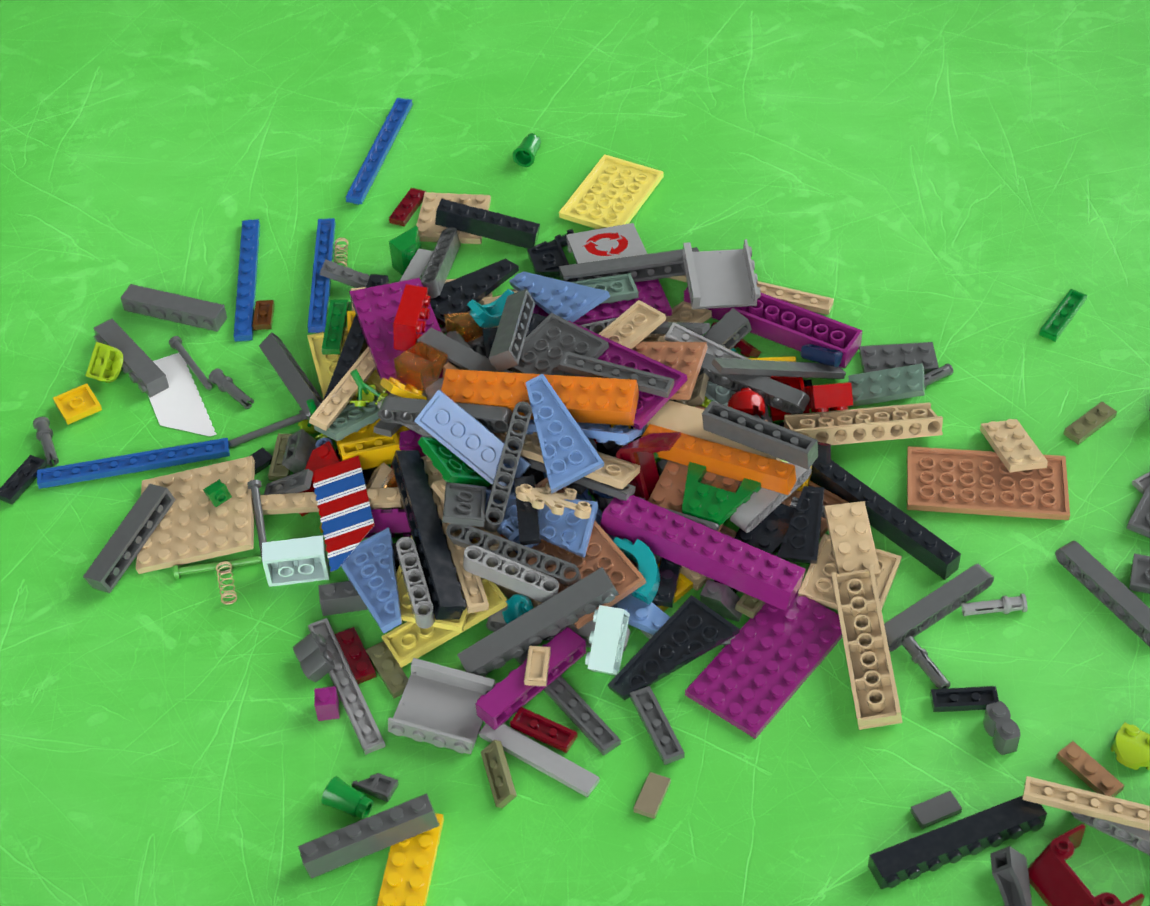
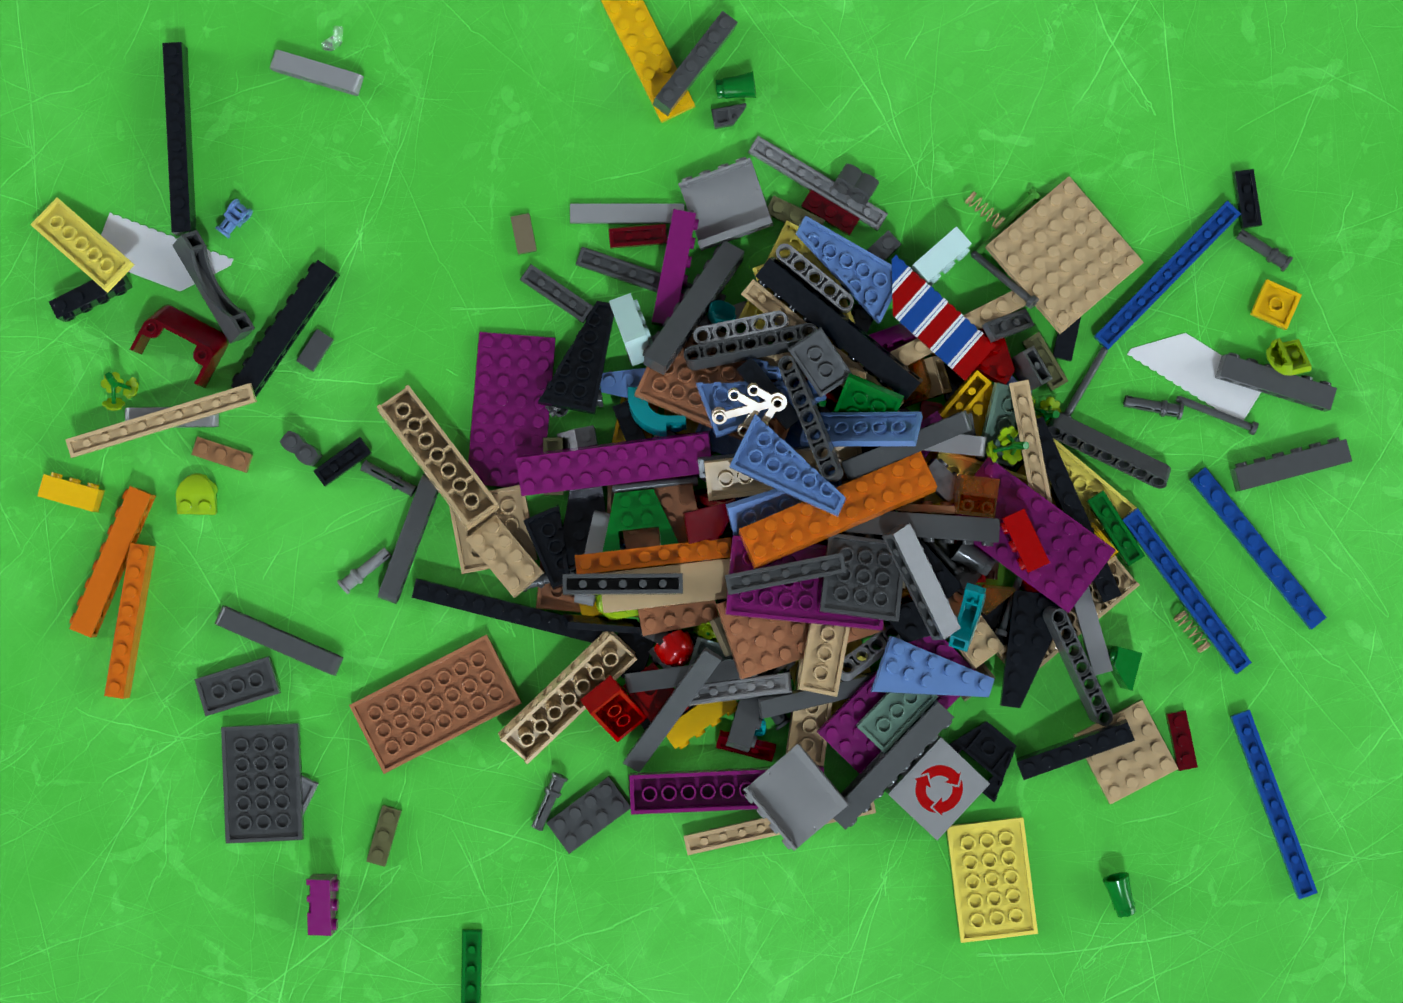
camera: 145 degrees right, 40 degrees up
(129, 538) = (1095, 193): dark grey brick -> none
(217, 493) = (1055, 273): green bracket -> none
(263, 315) = (1200, 510): reddish brown plate -> none
(326, 703) = (814, 152): magenta brick -> none
(344, 274) = (1159, 601): dark grey plate -> none
(399, 389) = (971, 458): yellow plate -> none
(498, 774) = (644, 177): olive plate -> none
(537, 666) = (670, 272): tan tile -> none
(821, 355) = (651, 763): dark blue brick -> none
(887, 384) = (577, 765): sand green plate -> none
(1013, 445) = (432, 758): tan plate -> none

